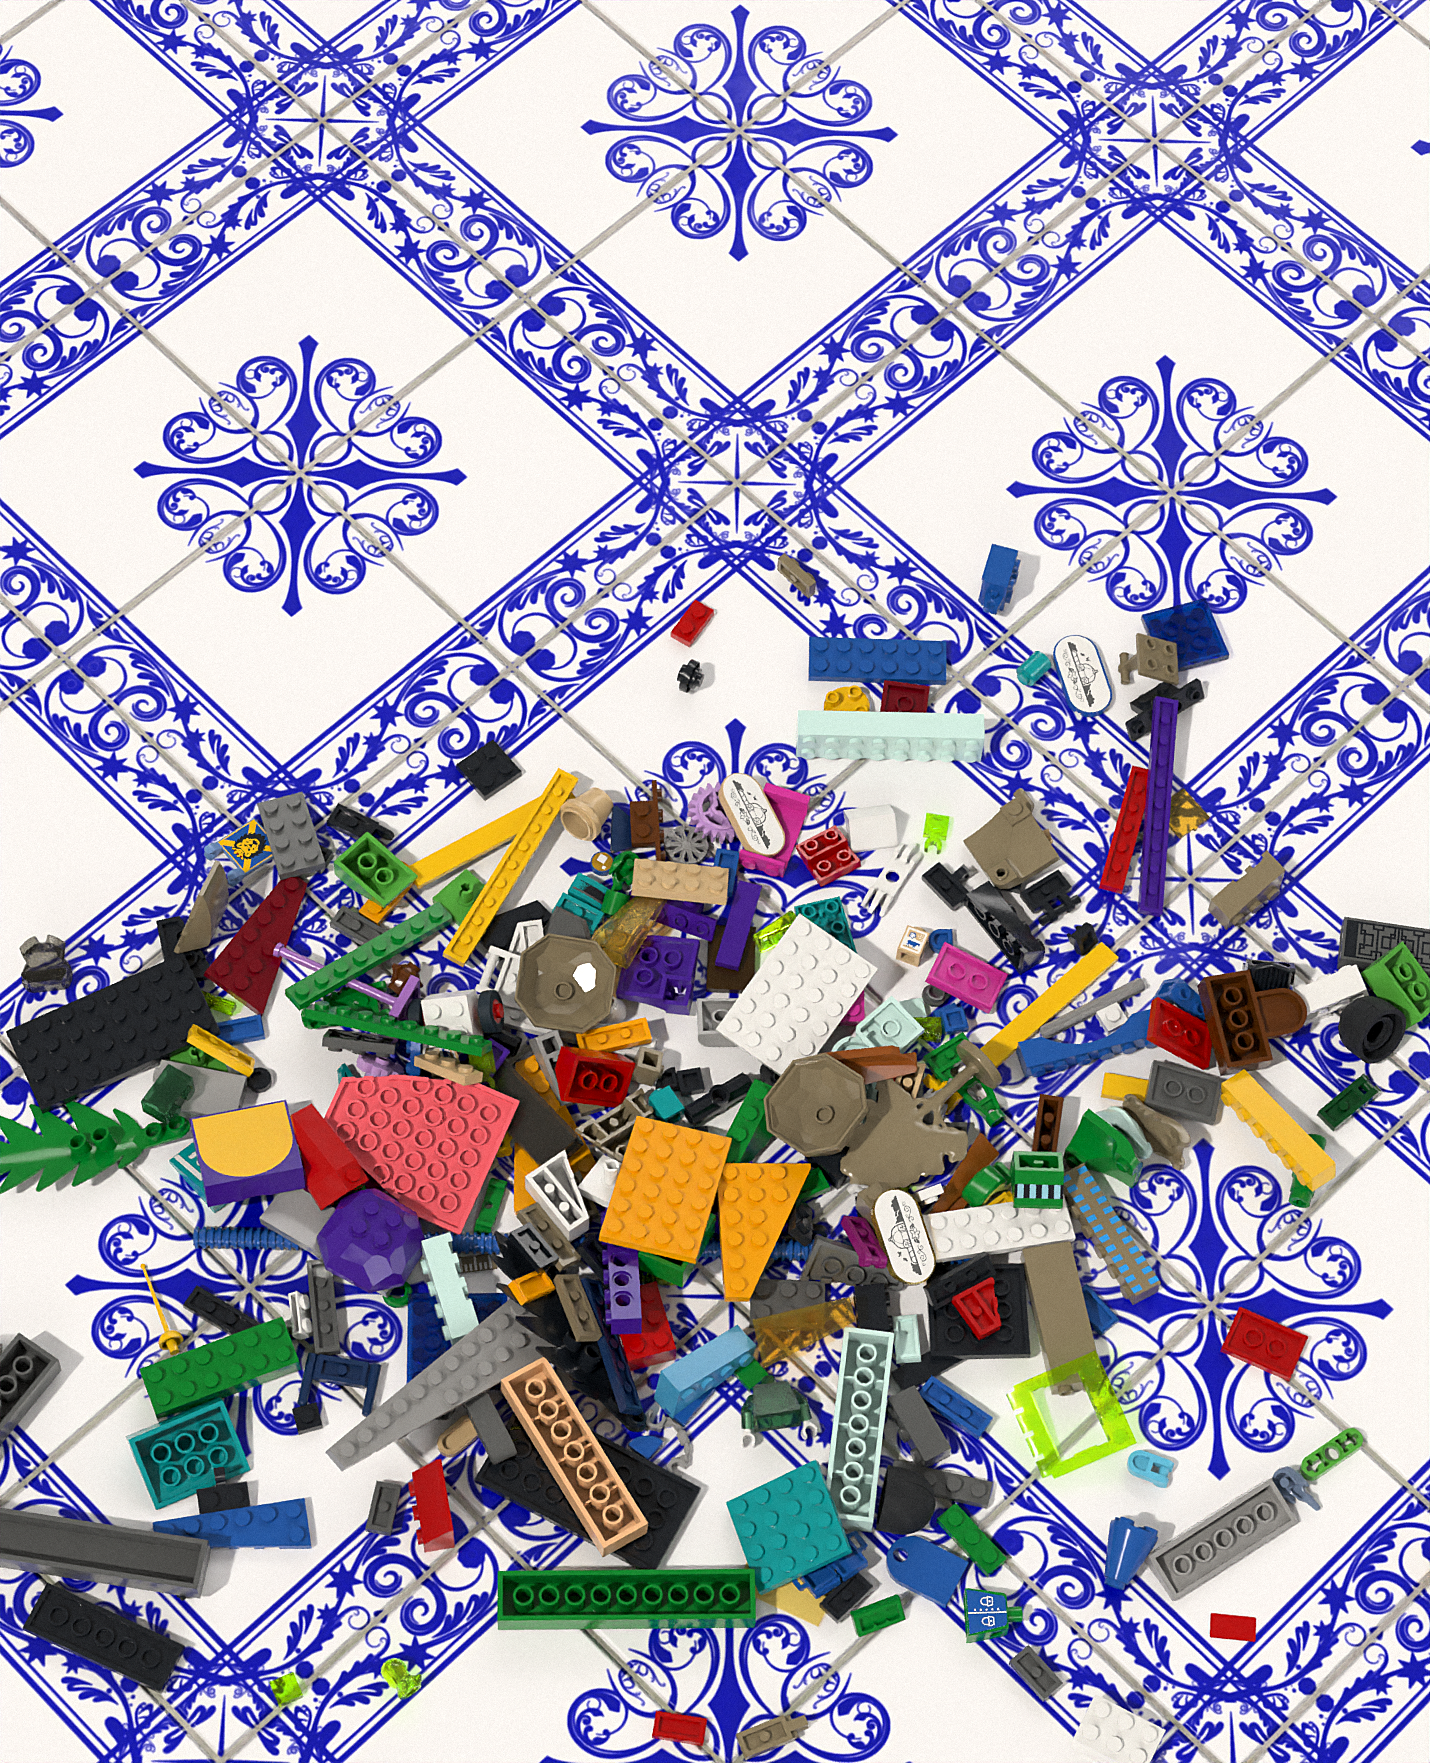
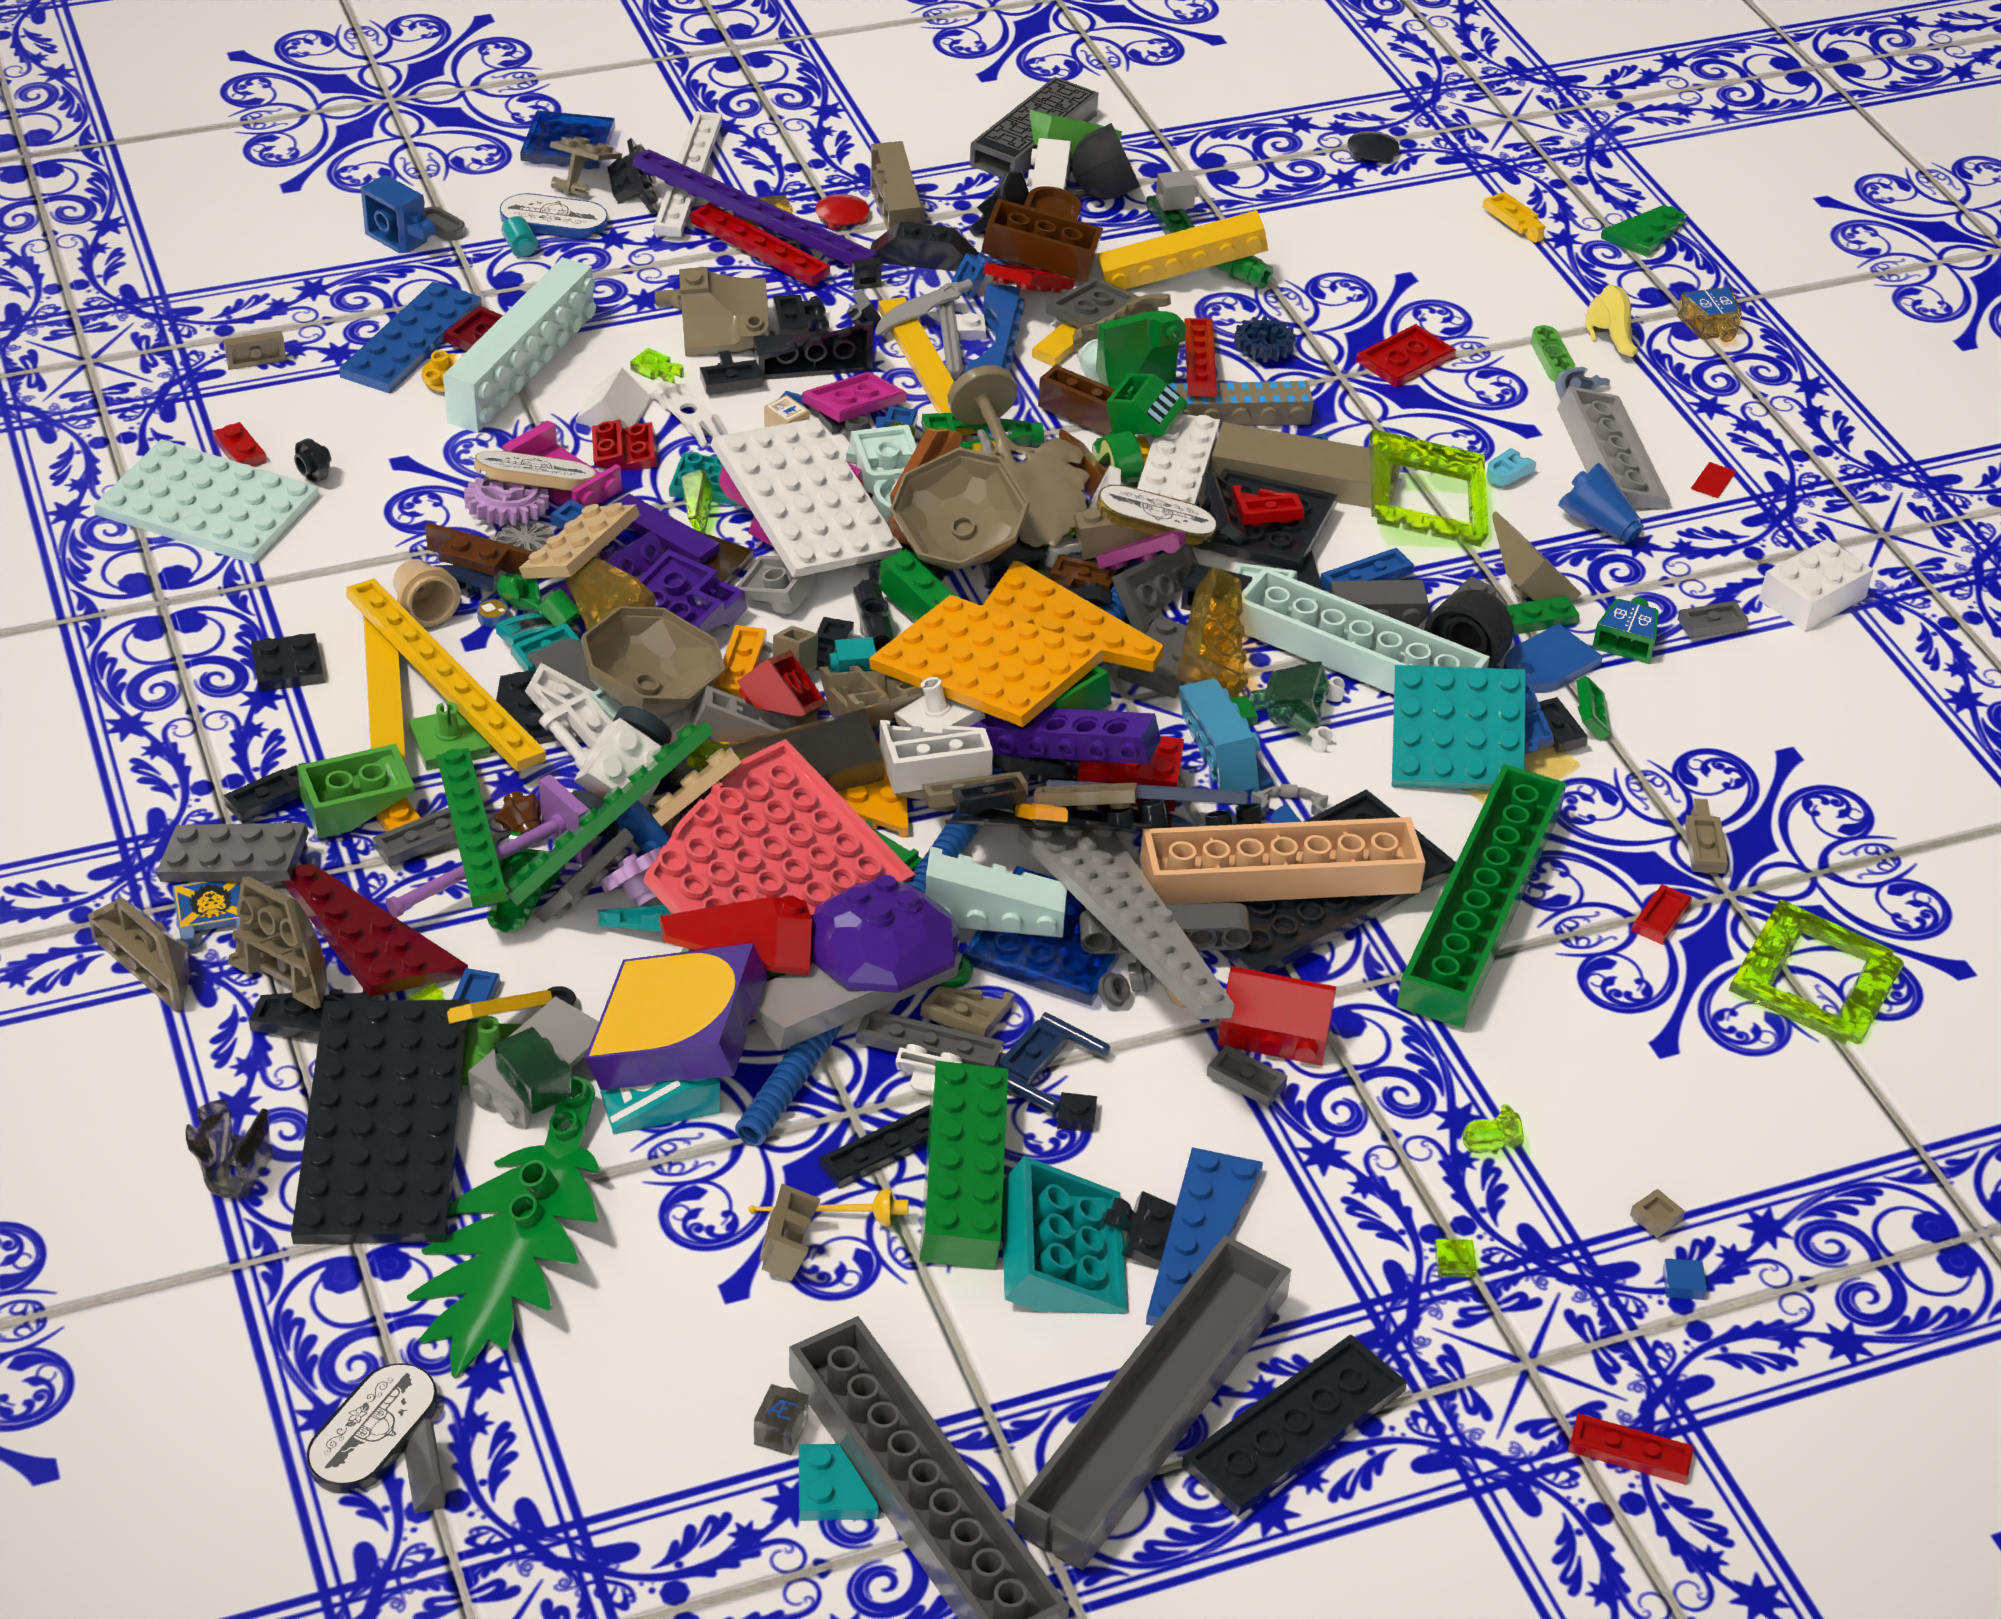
camera: 65 degrees left, 20 degrees down
(118, 1292) = (788, 1222): none -> dark tan window
(184, 840) = (143, 949): none -> dark tan wedge
(362, 1318) = (966, 1009): none -> dark tan wing
(624, 636) = (206, 501): none -> light aqua plate
(842, 1204) = (1075, 571): none -> reddish brown hinge
(1024, 1522) = (1527, 567): none -> dark tan wedge
(1027, 609) = (446, 225): none -> dark grey tile
(1106, 973) = (922, 305): none -> light grey sword
(1130, 918) = (866, 273): none -> black plate
(1152, 1194) = (1200, 357): none -> red tile
(1196, 737) = (694, 154): none -> white plate
(1196, 942) = (923, 246): none -> black wedge
(1212, 865) = (842, 210): none -> red dish
(1215, 1246) = (1264, 339): none -> dark blue gear
(1368, 1092) = (1176, 190): none -> light grey brick
(1398, 1481) = (1612, 312): none -> light yellow piece

